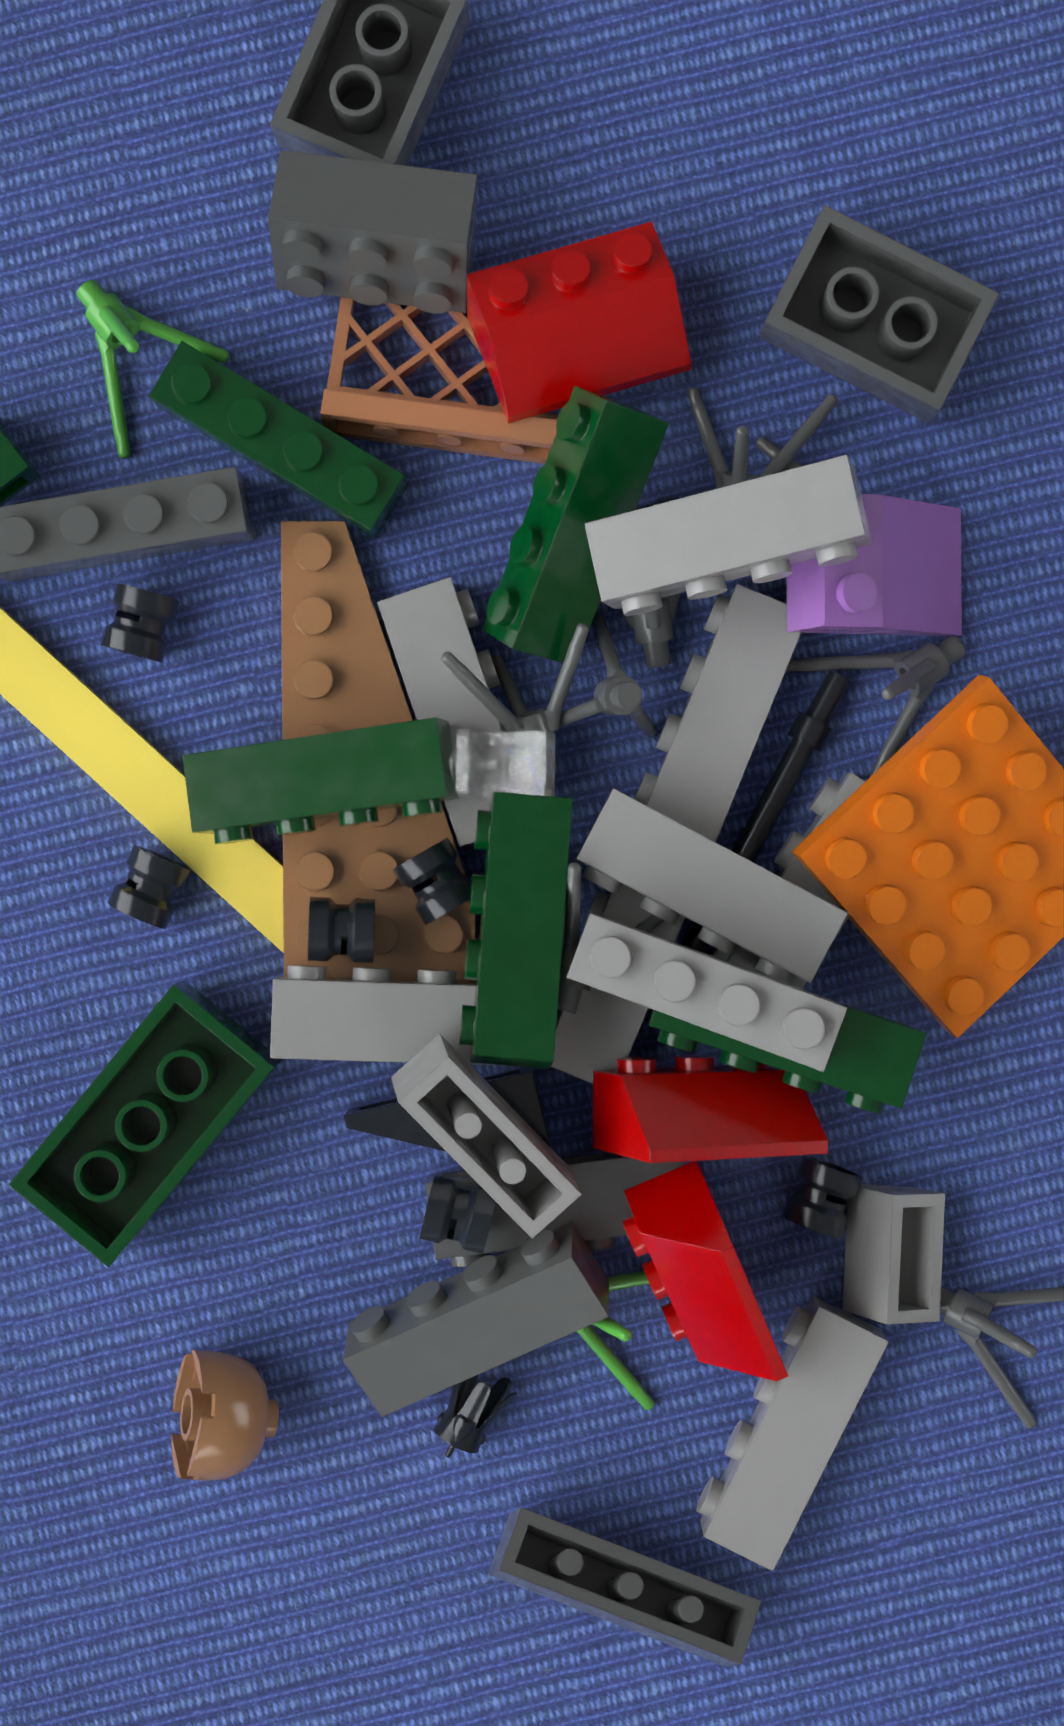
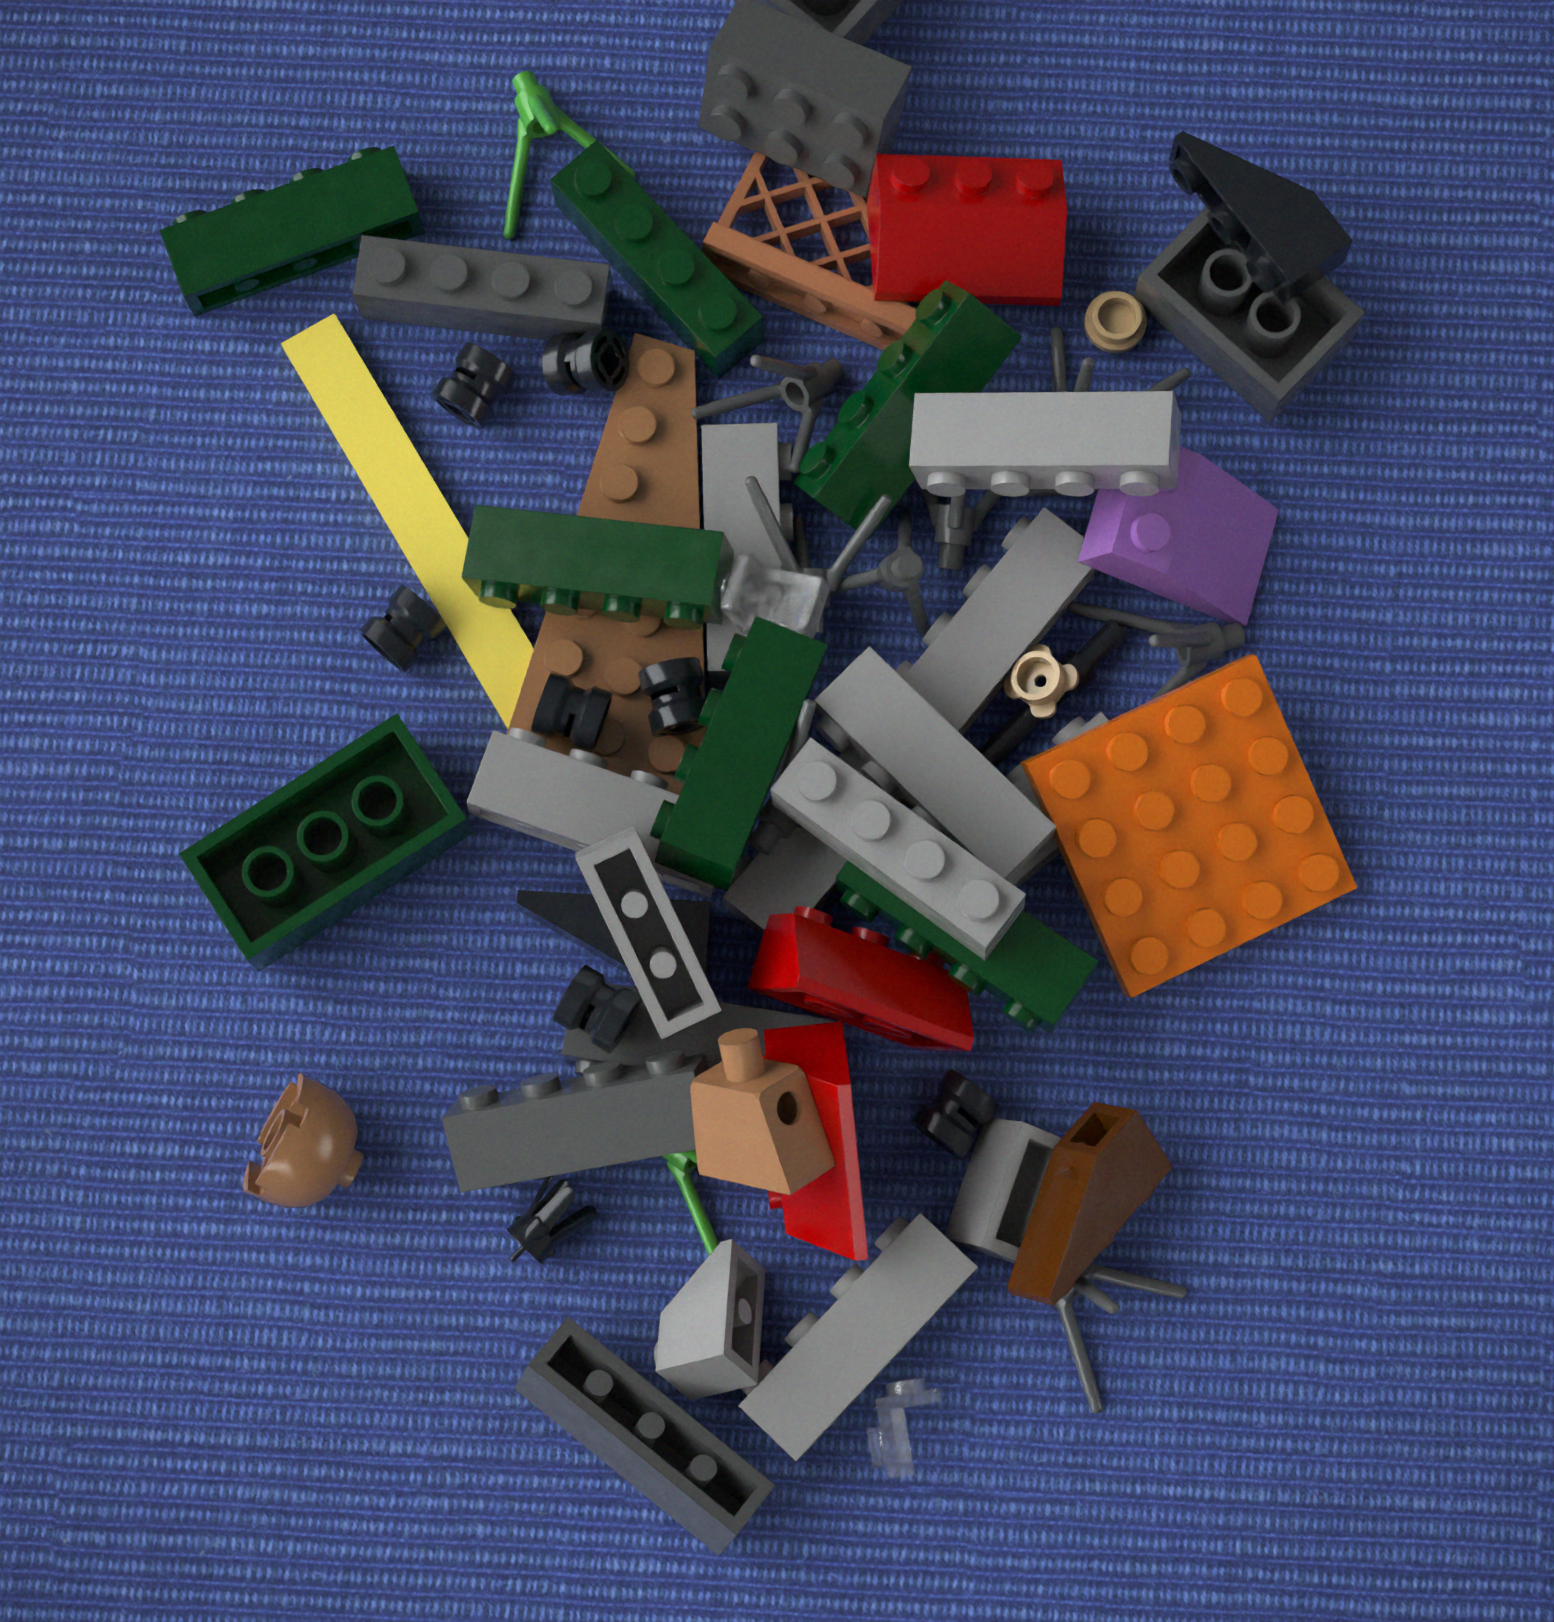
camera: 25 degrees right, 10 degrees down
(251, 563) = (595, 359): none -> black wheel
(461, 531) = (801, 389): none -> dark grey plant
(651, 1294) = (757, 1120): none -> medium nougat torso
(657, 1465) = (714, 1326): none -> light grey slope
(748, 366) = (1115, 322): none -> tan plate
(765, 761) = (1035, 664): none -> tan plate
(850, 1517) = (890, 1440): none -> clear bracket
(883, 229) = (1272, 220): none -> black slope
(971, 1248) = (1087, 1194): none -> reddish brown slope

